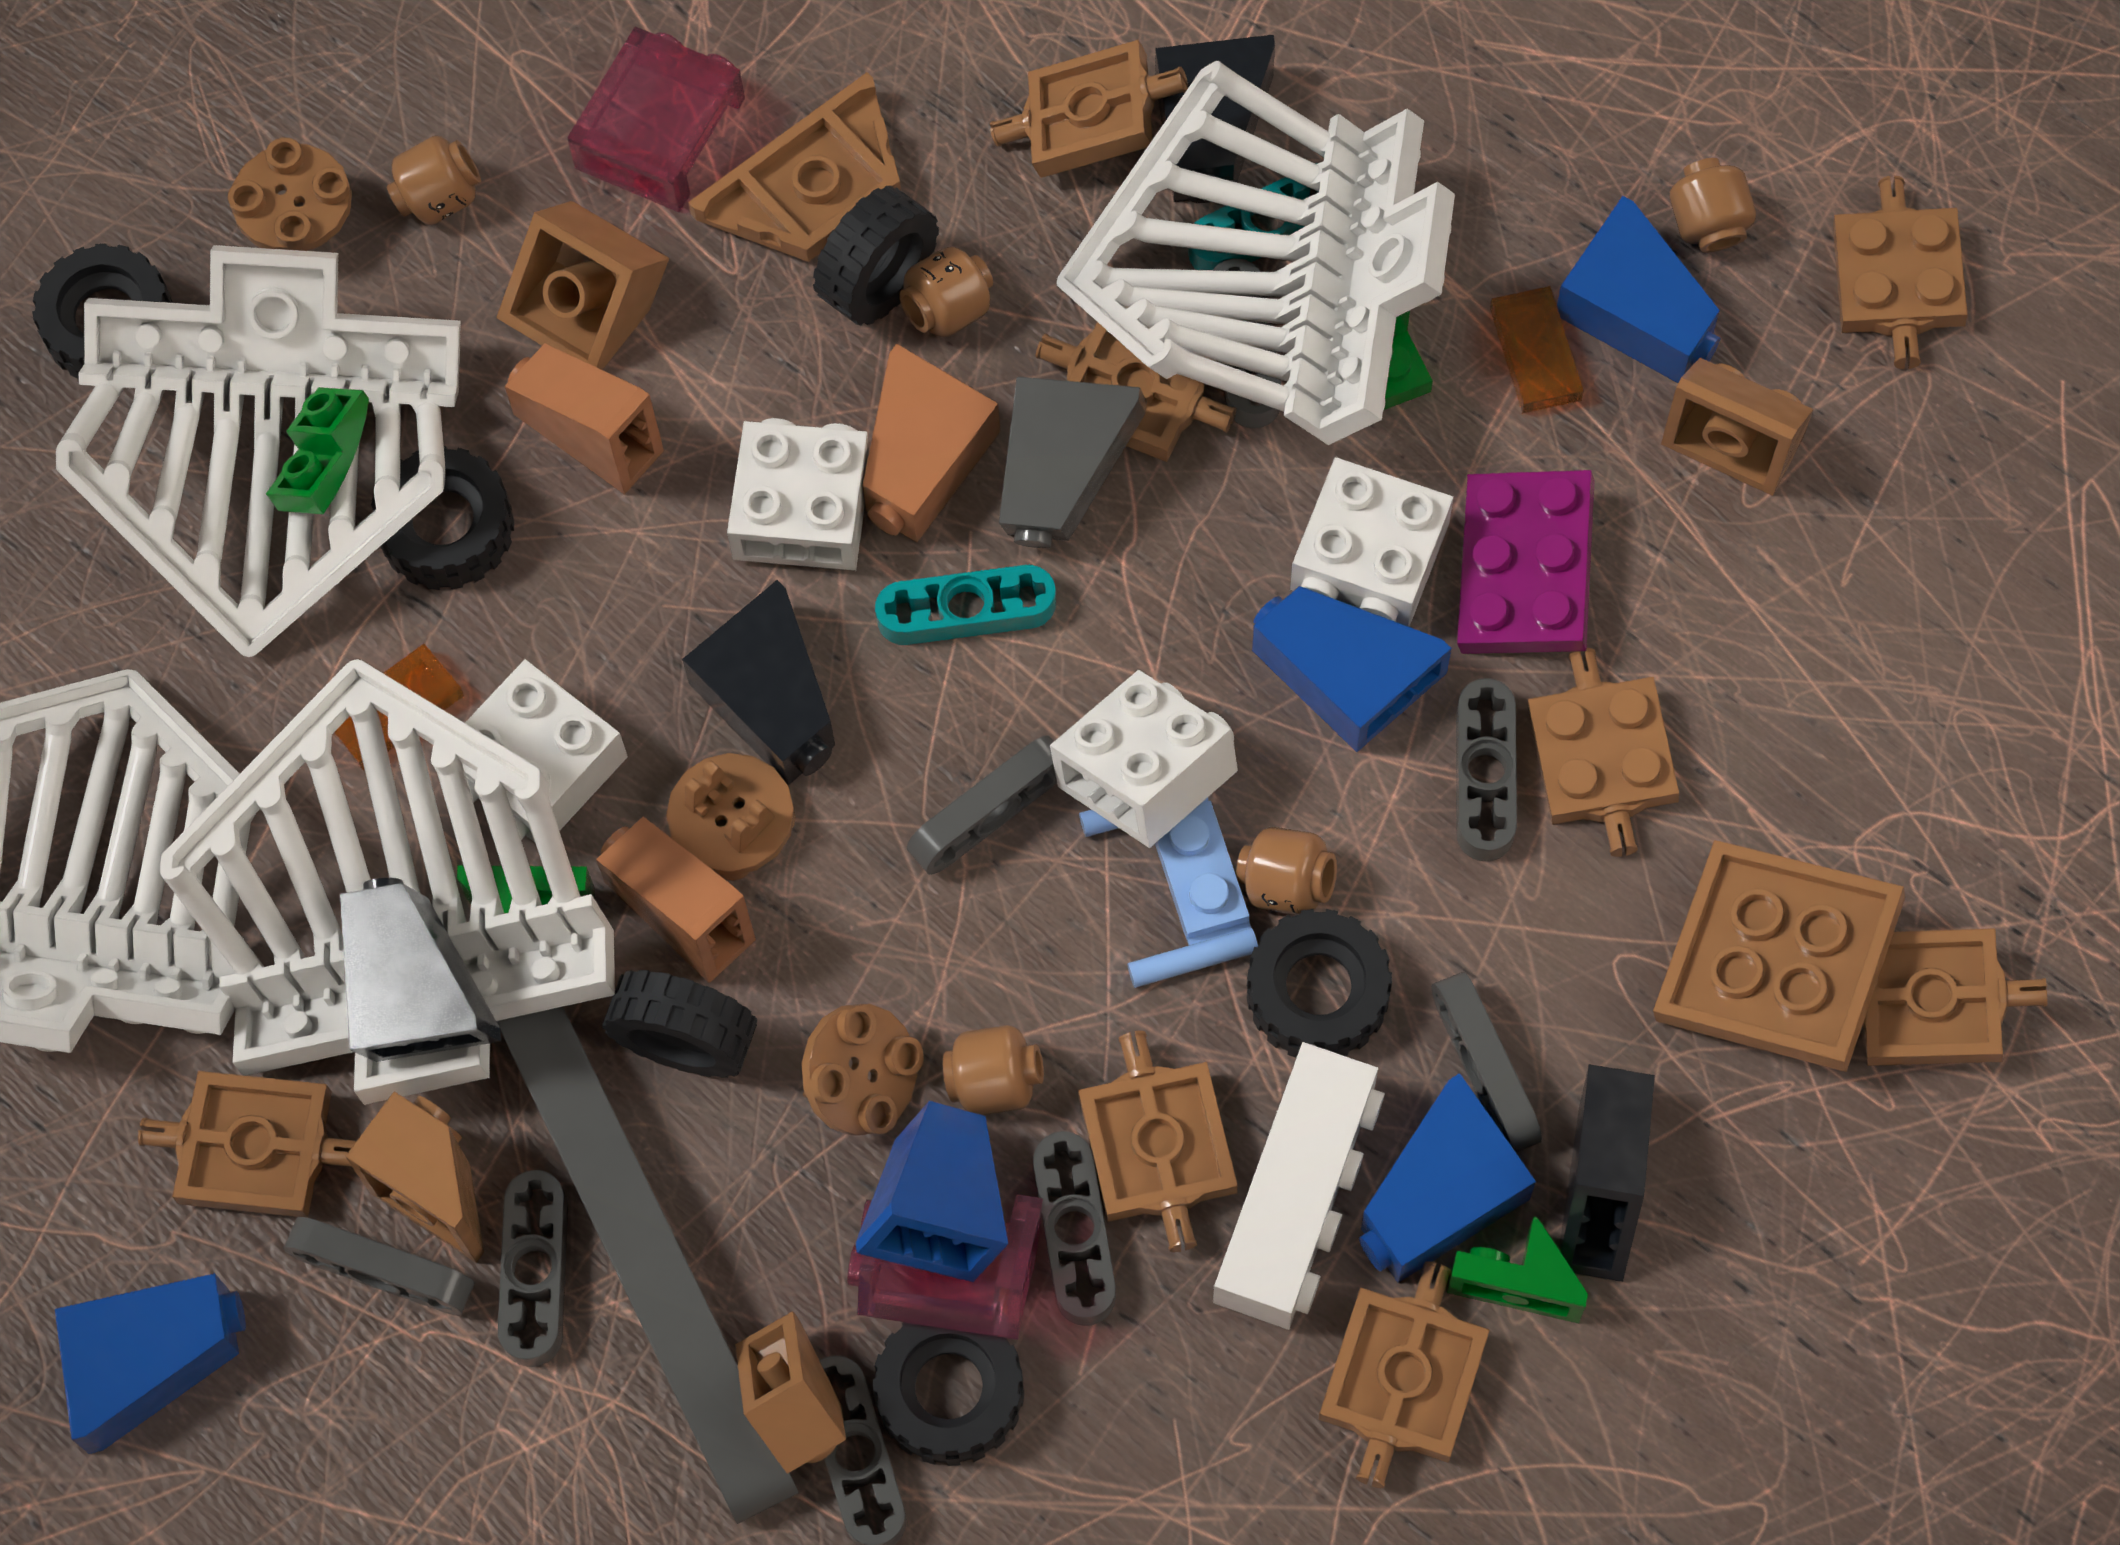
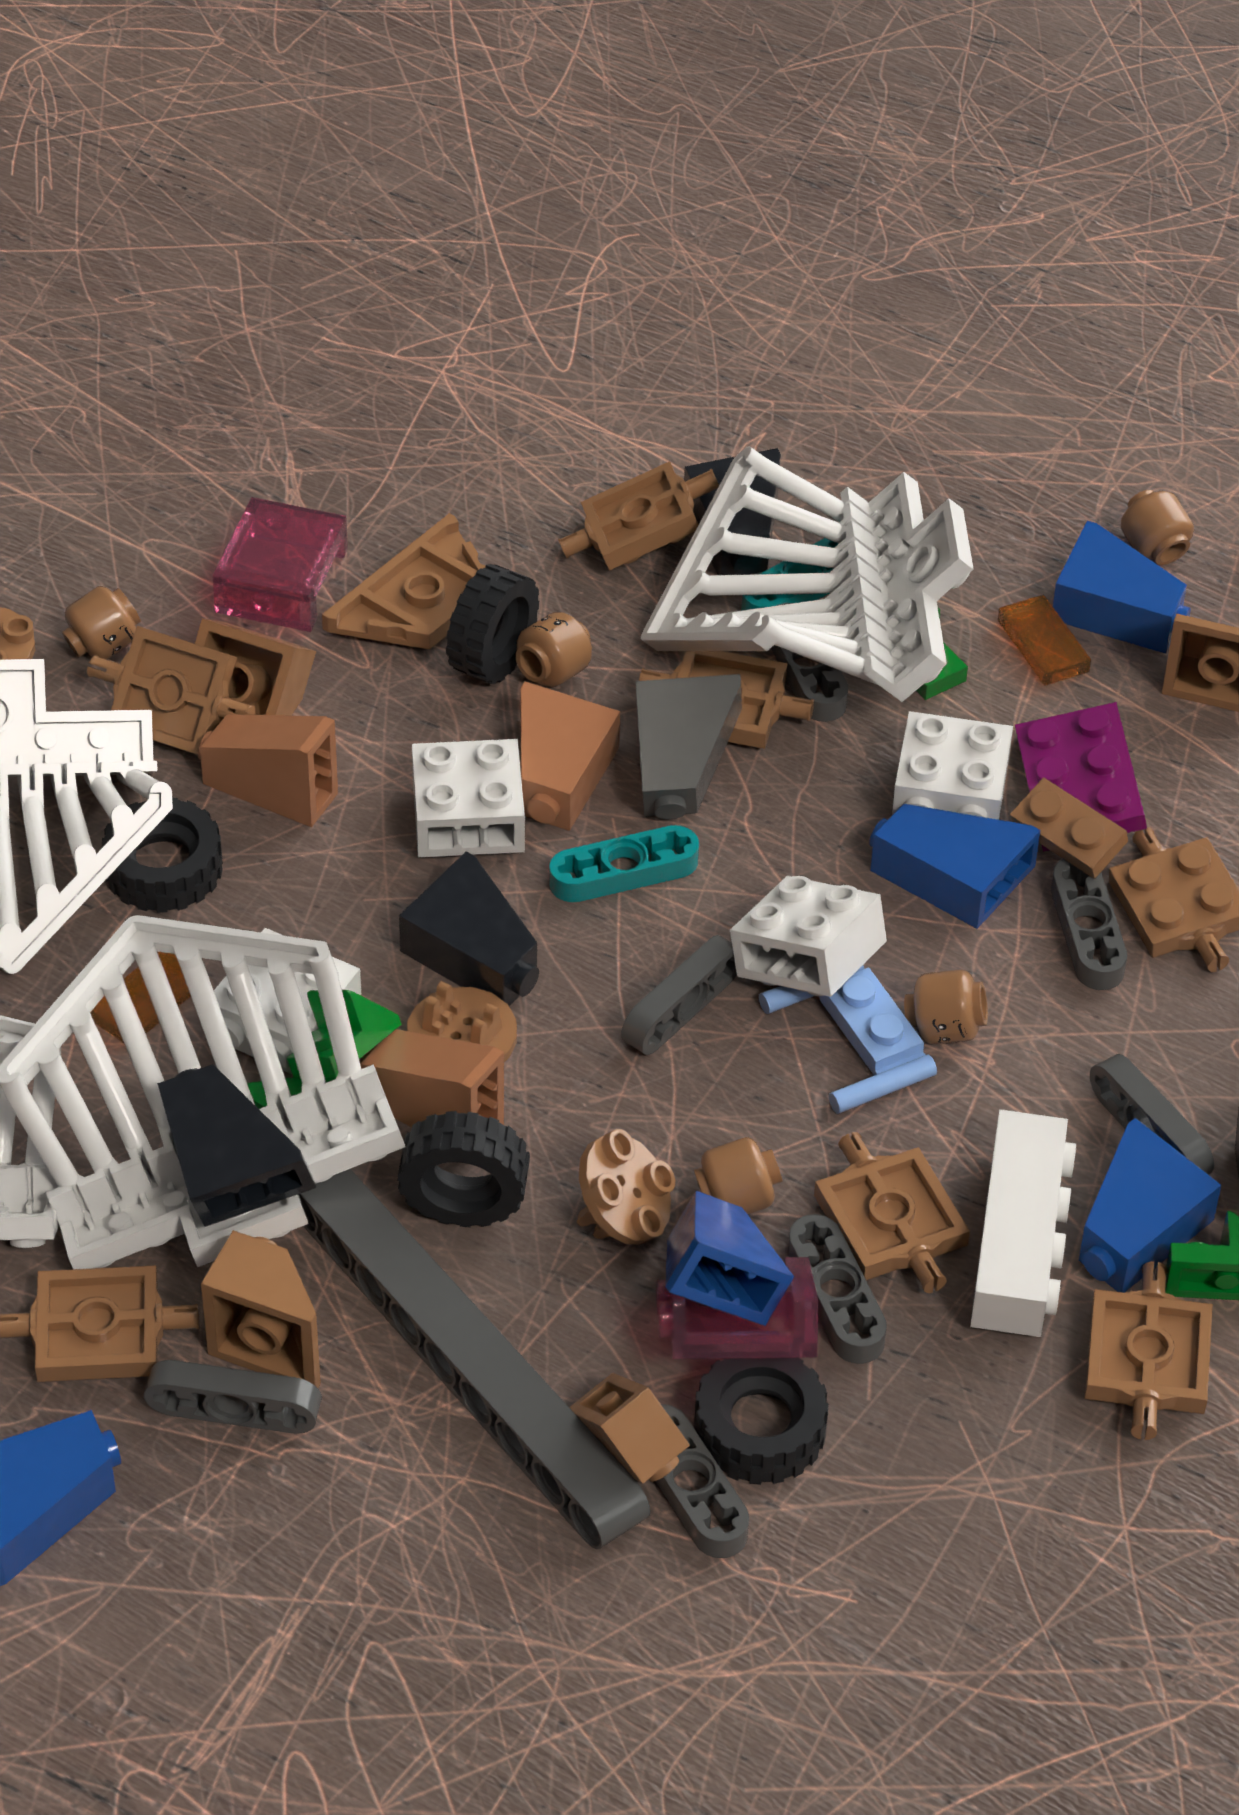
camera: 15 degrees left, 20 degrees down
(326, 440) = (56, 800): green slope -> none
(494, 289) = (177, 682): none -> medium nougat plate
(548, 1316) = (360, 1404): dark grey beam -> none
(589, 819) = (368, 1023): none -> green slope
(1328, 936) = (997, 1049): black tyre -> none
(1488, 645) = (1071, 827): none -> medium nougat plate

